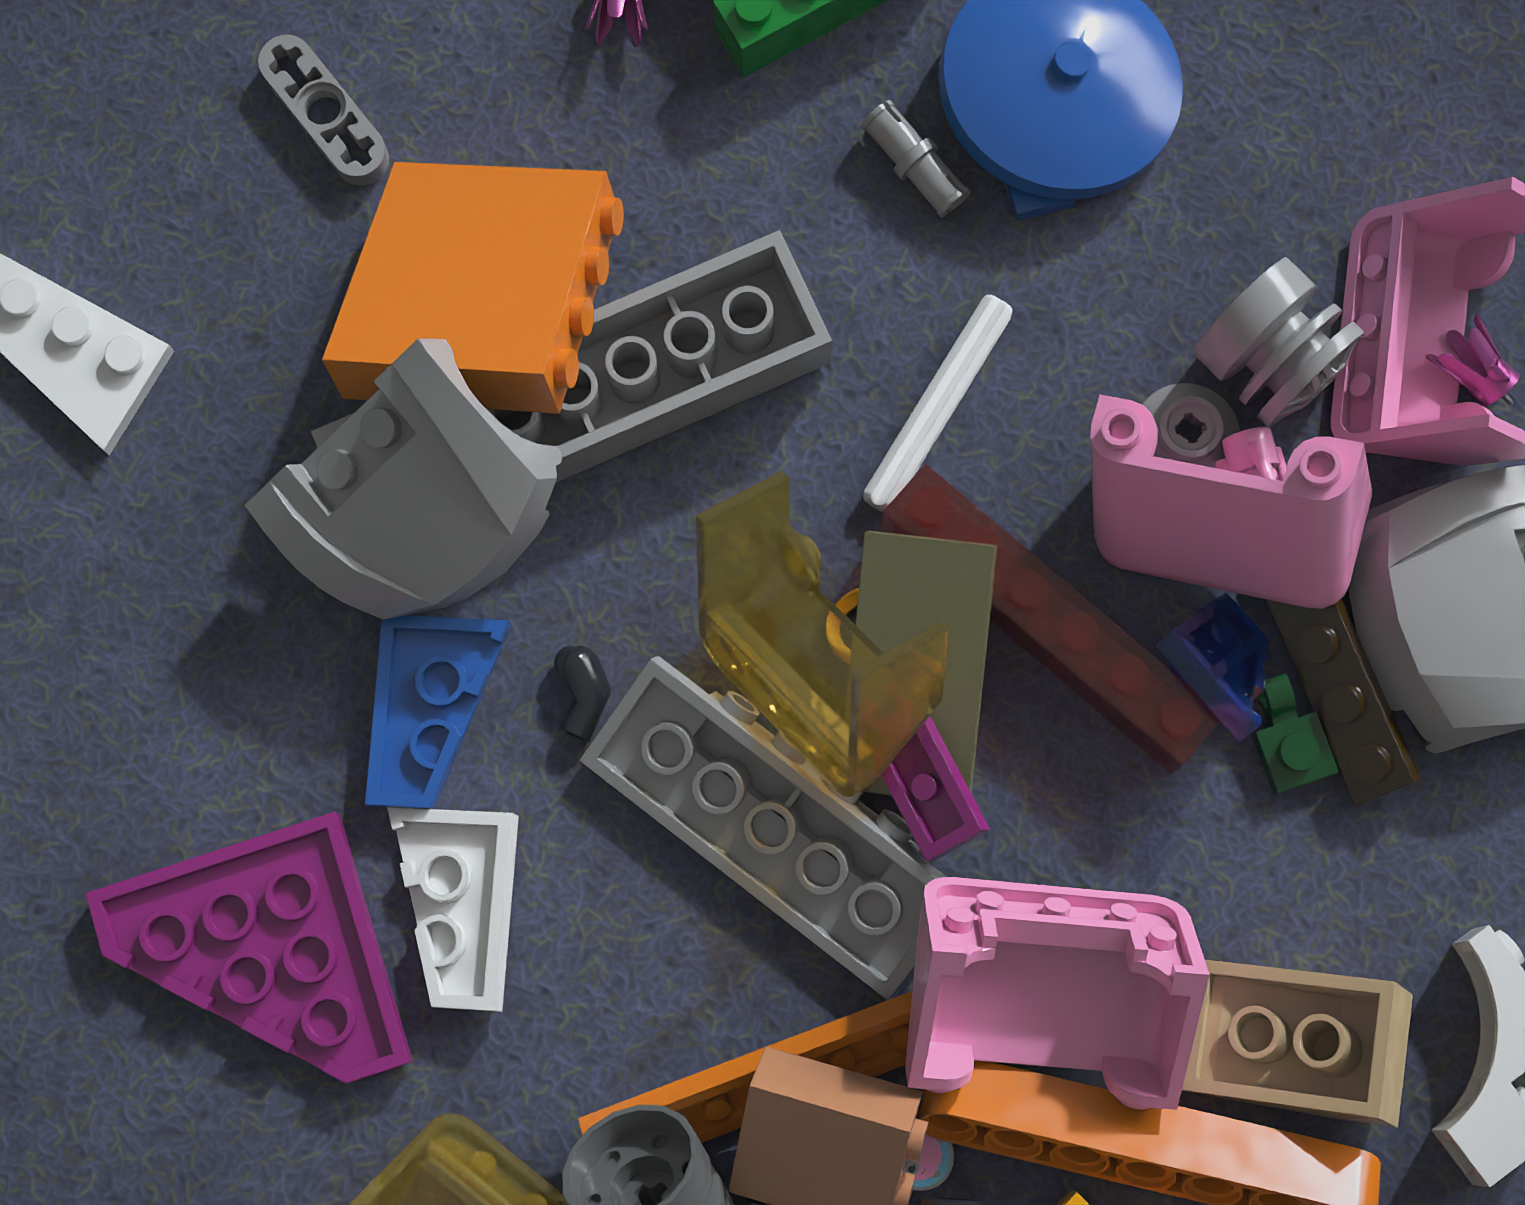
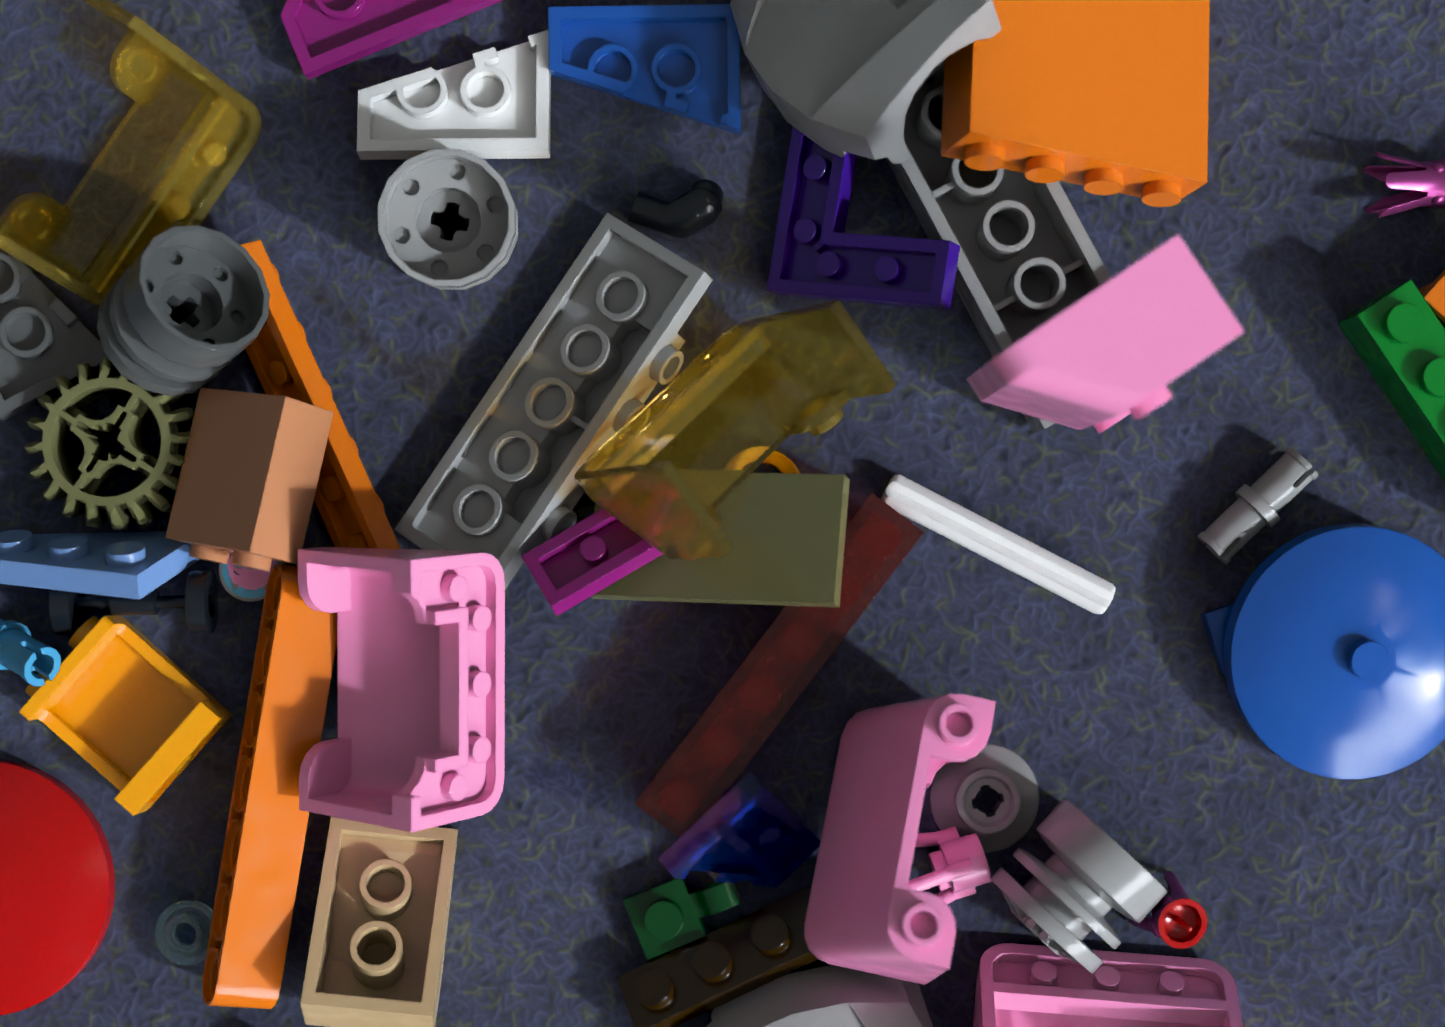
camera: 80 degrees right, 10 degrees up
(557, 881) = (427, 189): none -> light grey wheel
(648, 550) = (823, 262): none -> dark purple plate
(772, 247) = (1114, 345): none -> bright pink windscreen
(1314, 253) = (1175, 917): none -> red piece

